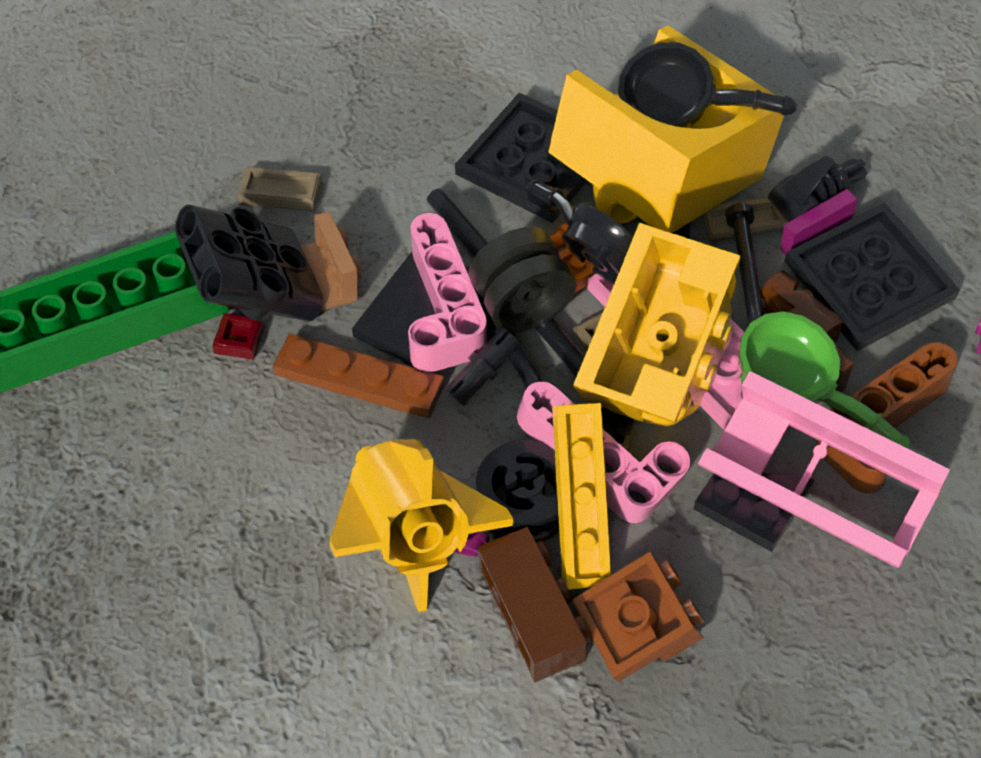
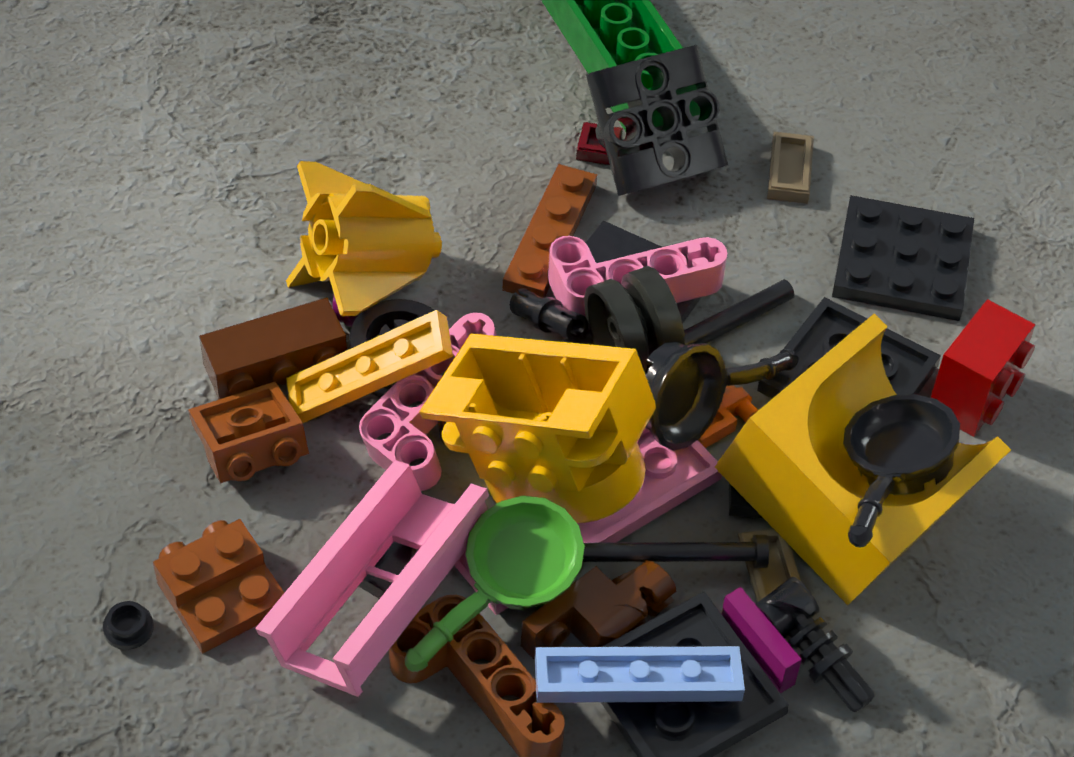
camera: 85 degrees right, 5 degrees down
(332, 263) = (679, 196): medium nougat bracket -> none
(394, 116) = (904, 258): none -> black plate
(539, 54) = (984, 366): none -> red brick
(816, 631) = (217, 583): none -> dark orange plate
(873, 708) = (128, 625): none -> black plate
(887, 290) = (638, 674): none -> light blue plate

